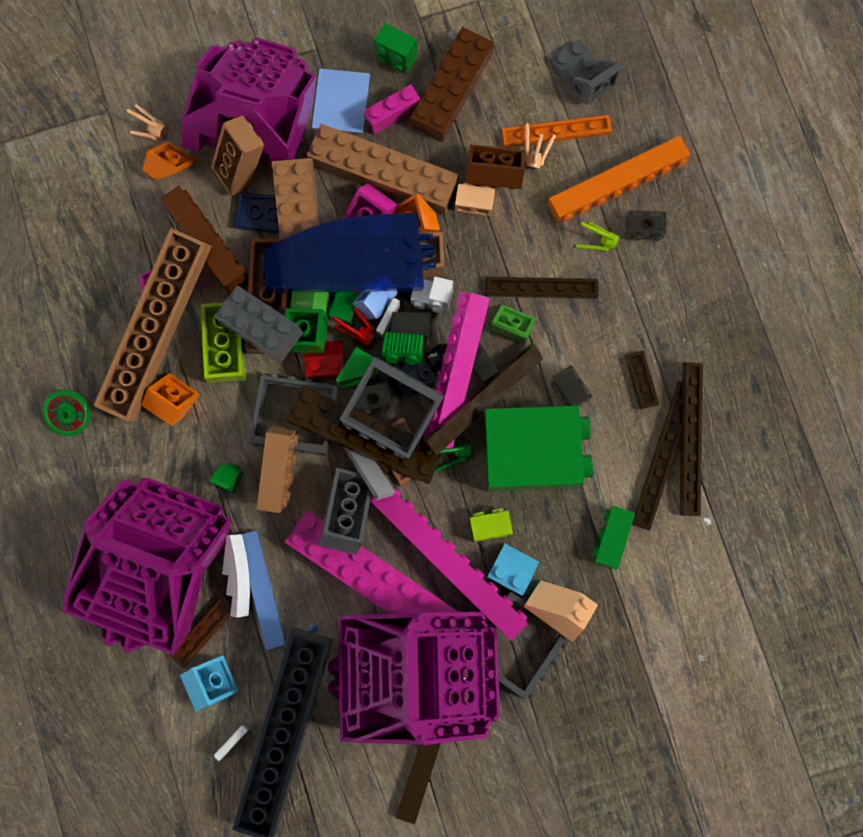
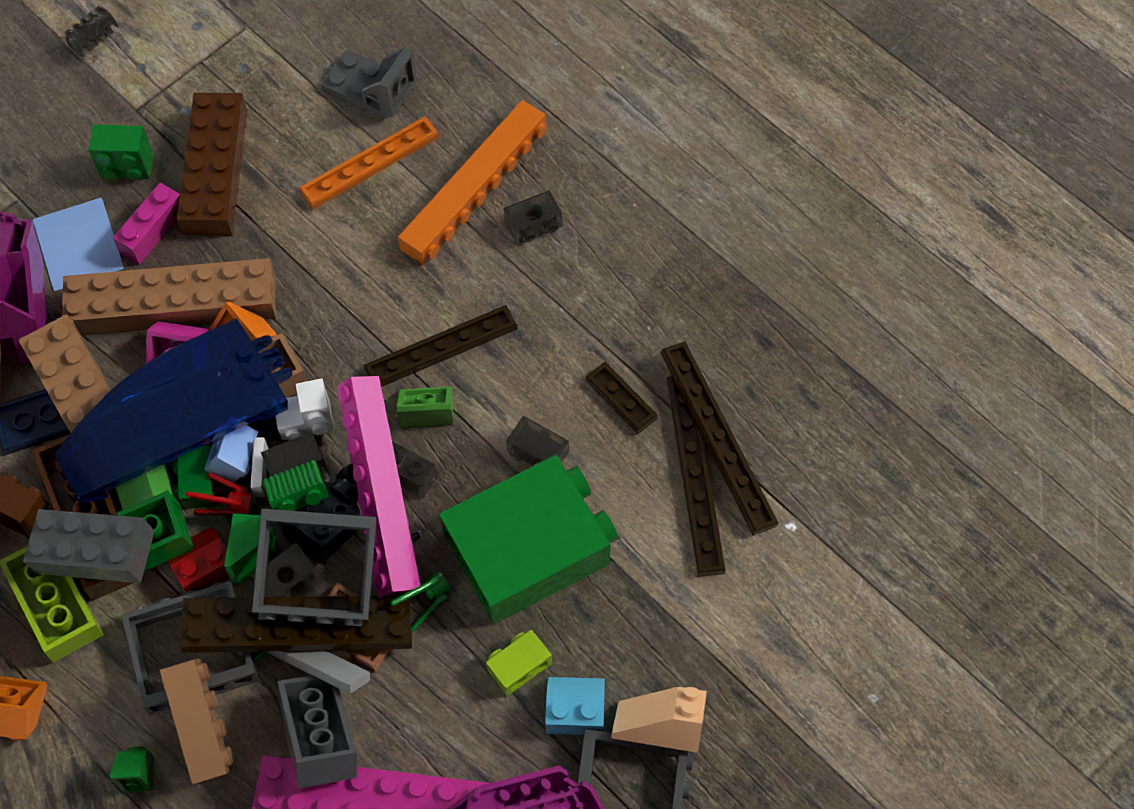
camera: 25 degrees left, 15 degrees down
(453, 566) = (489, 732): dark pink brick -> none
(474, 199) = (305, 281): light nougat brick -> none
(483, 399) = (434, 500): dark brown tile -> none
(495, 166) = (313, 230): reddish brown brick -> none
(535, 160) = (357, 203): light nougat plant -> none
(609, 239) = (496, 254): lime plant -> none
(613, 537) = (683, 601): green brick -> none

